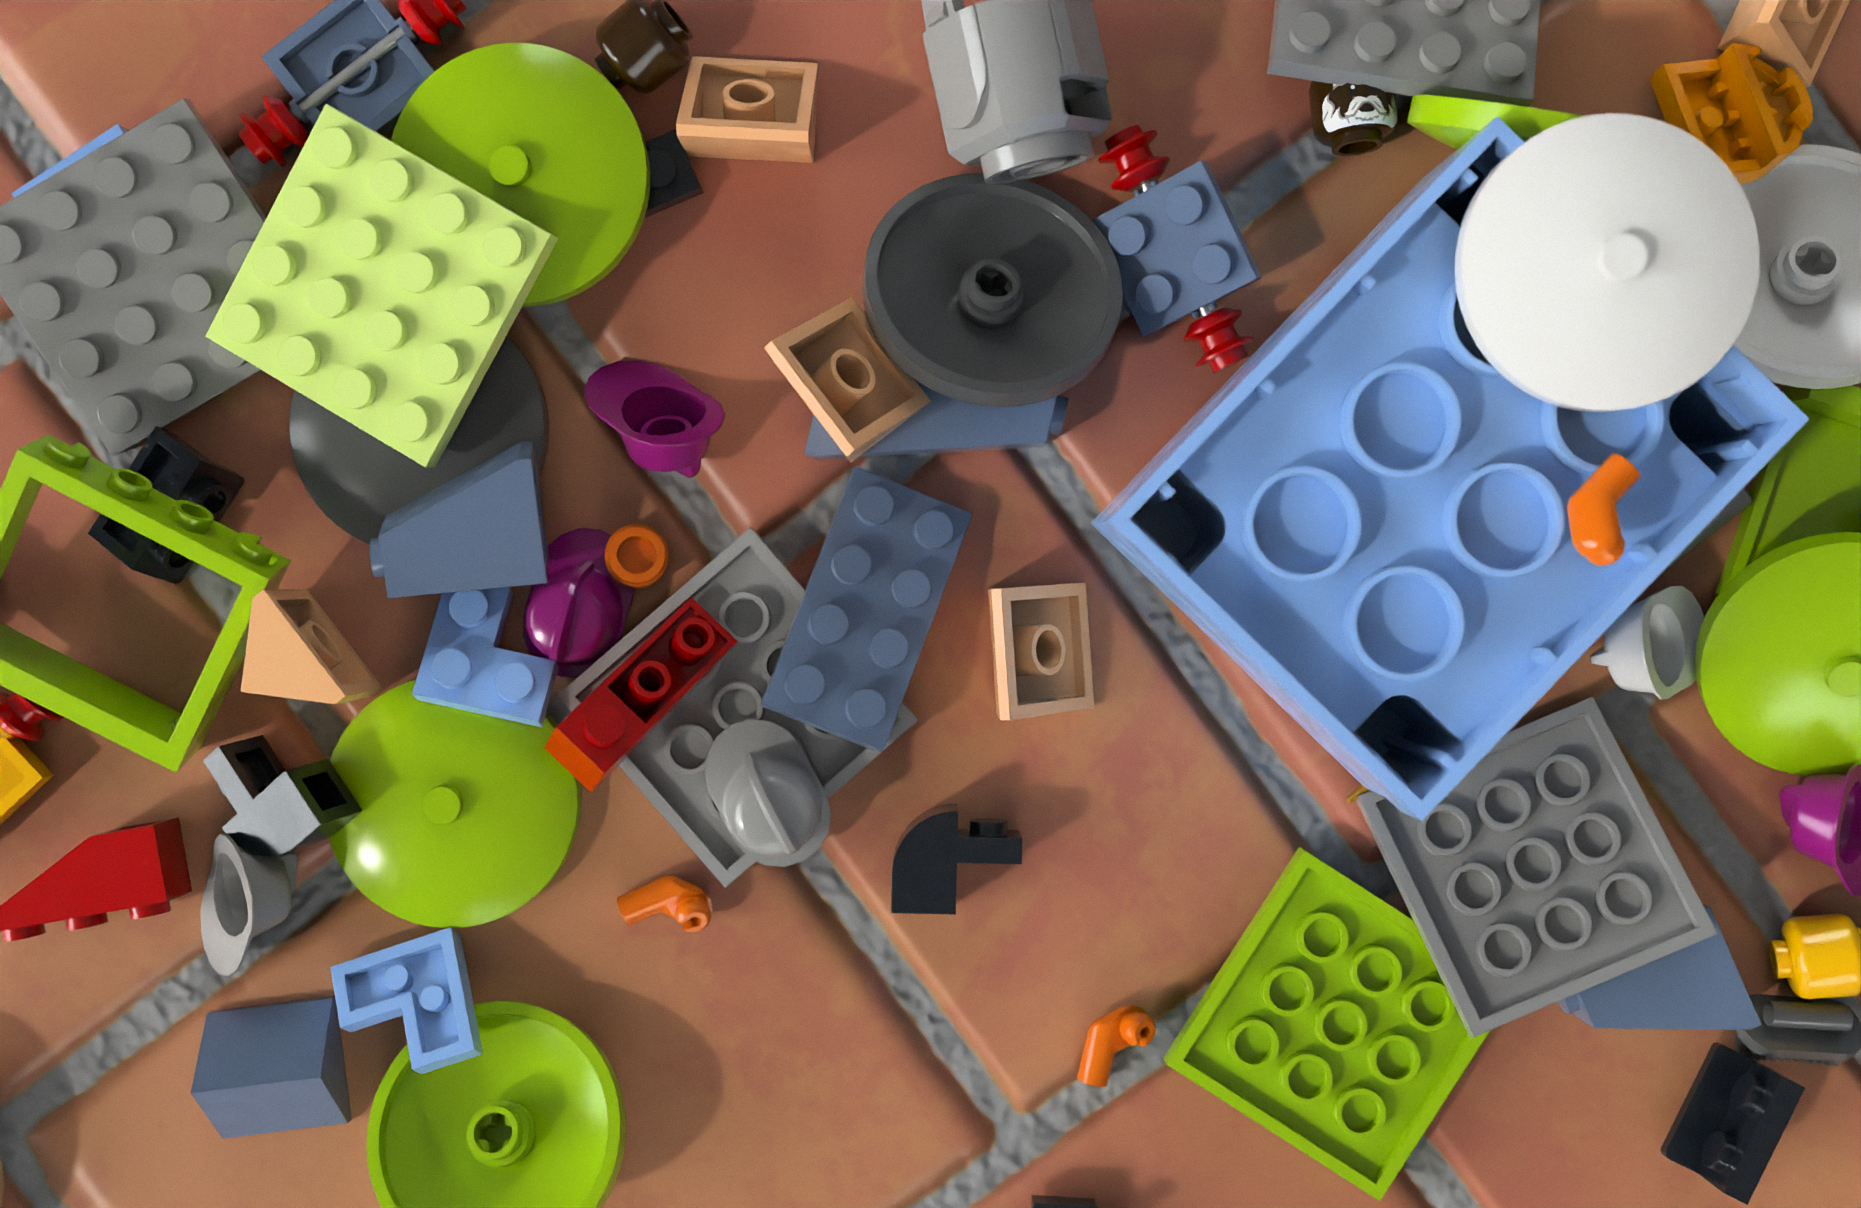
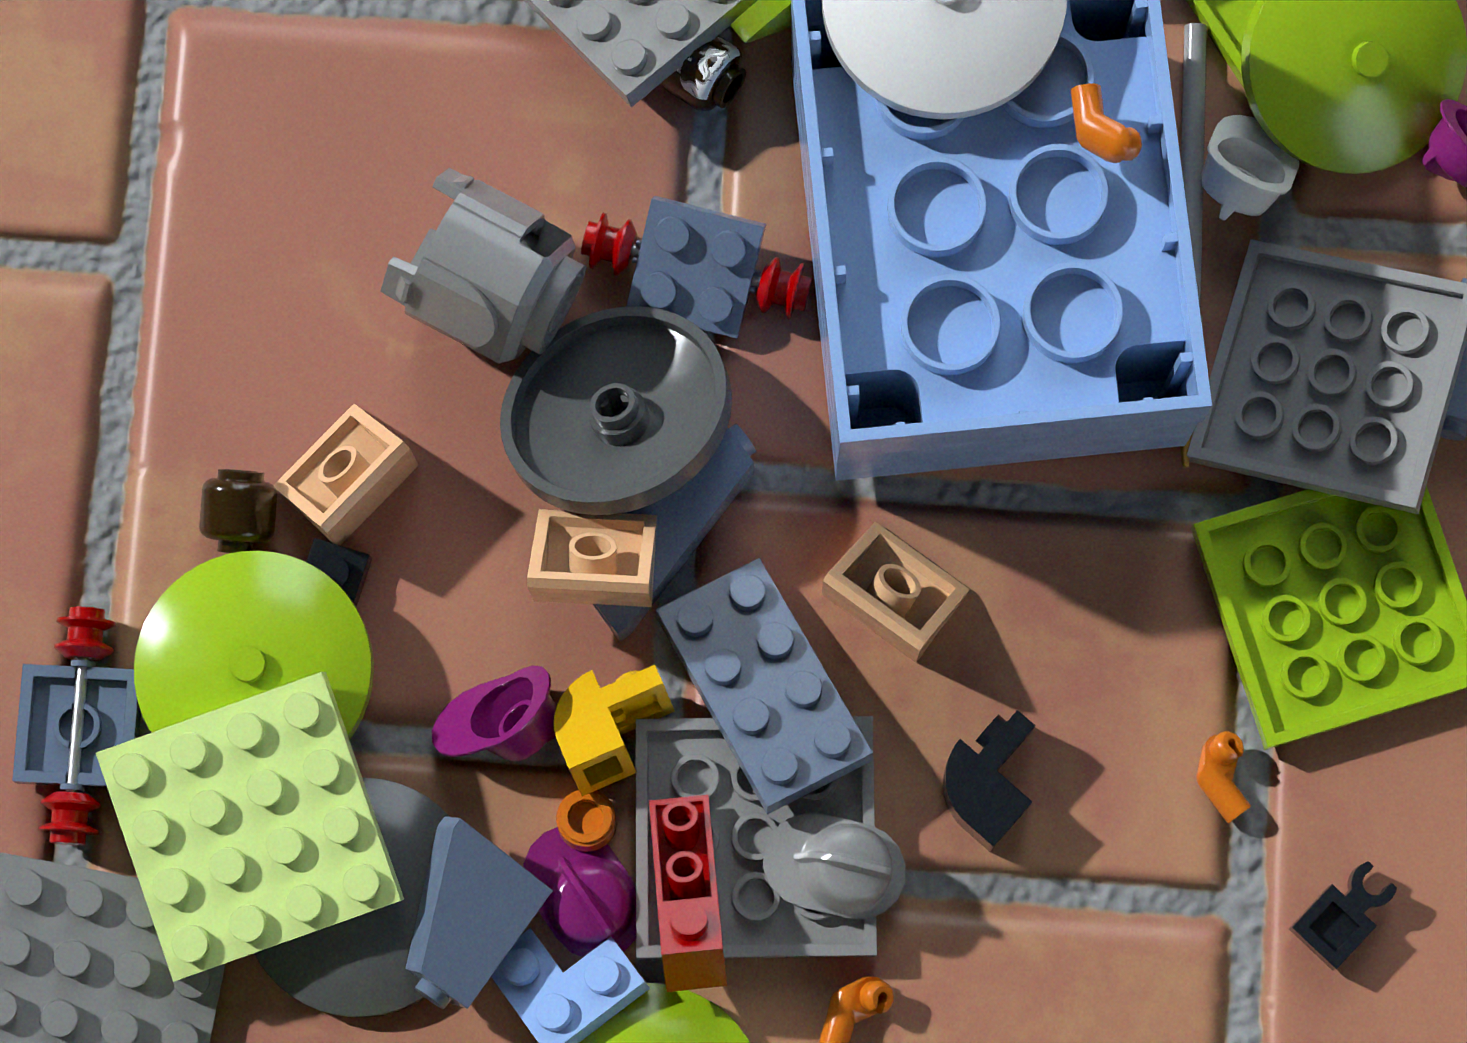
camera: 45 degrees left, 10 degrees down
(718, 493) = (594, 718): none -> yellow brick

